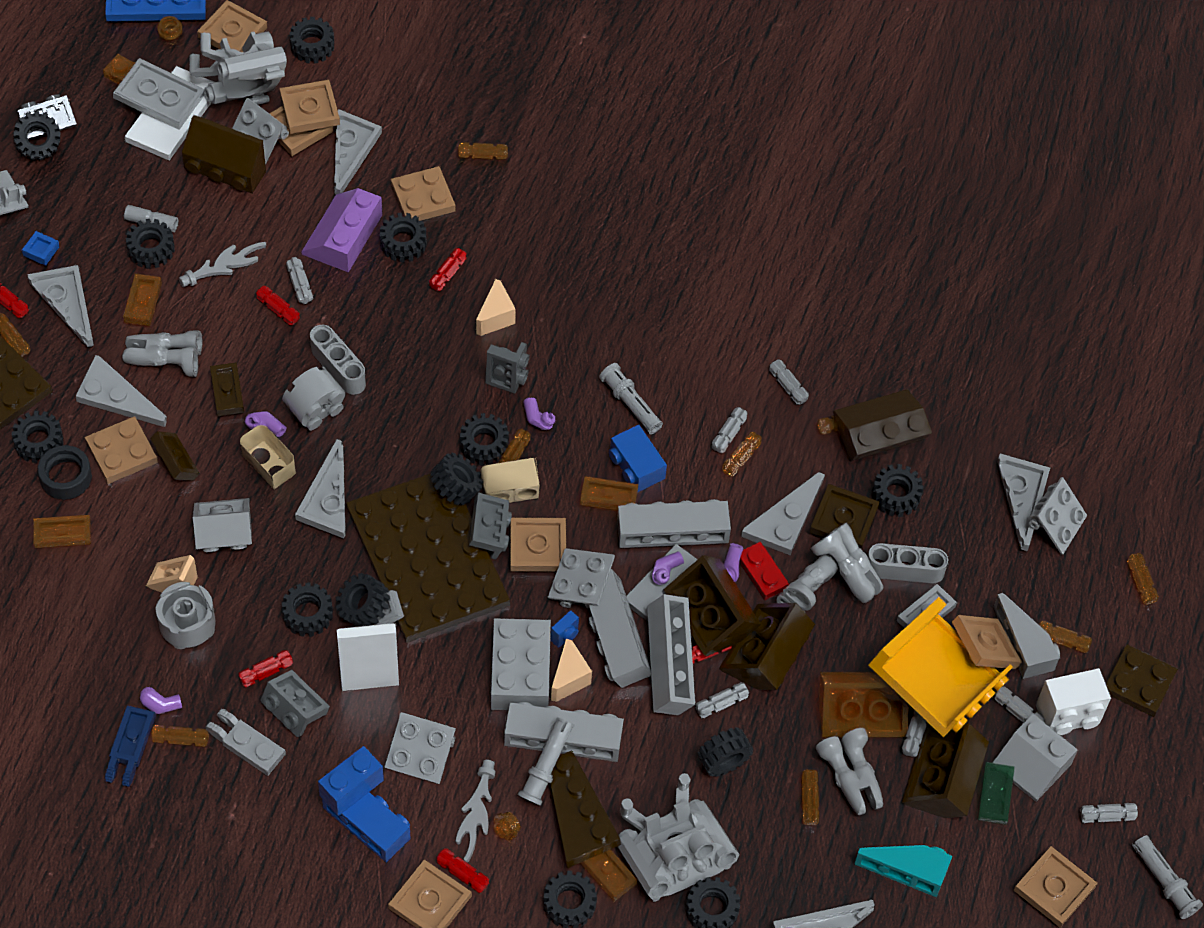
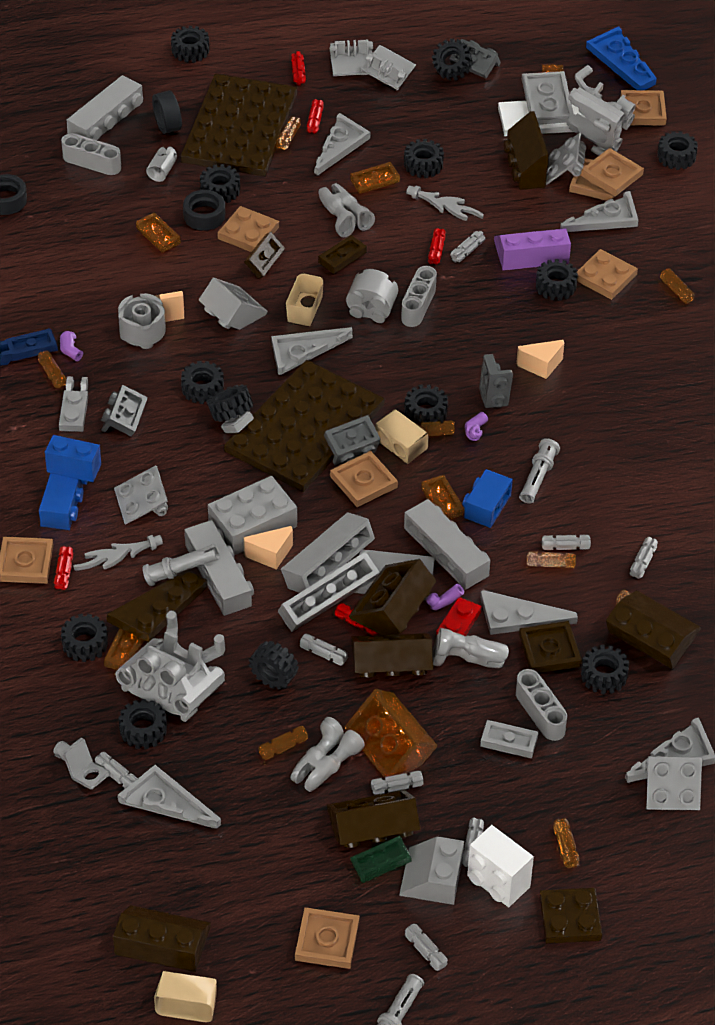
camera: 60 degrees right, 10 degrees down
(40, 248) = (368, 110): blue plate -> none
(111, 392) = (288, 203): light grey wing -> none
(136, 214) = (449, 156): light grey piece -> none
(169, 28) = (611, 78): clear orange plate -> none
(265, 668) = (139, 385): red axle -> none
(266, 419) = (335, 286): medium lavender arm -> none
(368, 656) = (173, 414): white tile -> none
(447, 269) = (554, 317): red axle -> none
(456, 479) = (379, 392): black tyre -> none
(506, 825) = (115, 572): clear orange plate -> none
(565, 629) = (304, 526): blue plate -> none
(581, 577) = (350, 509): light grey hinge -> none
(663, 567) = (403, 554): medium lavender arm -> none
(852, 562) = (499, 669): light grey piece -> none
(913, 866) = (272, 832): teal slope -> none
(935, 673) = (450, 756): light orange panel -> none
(986, 642) = (509, 785): medium nougat plate -> none
(1029, 639) = (533, 821): light grey slope -> none
(1143, 578) = (670, 873): clear orange axle -> none

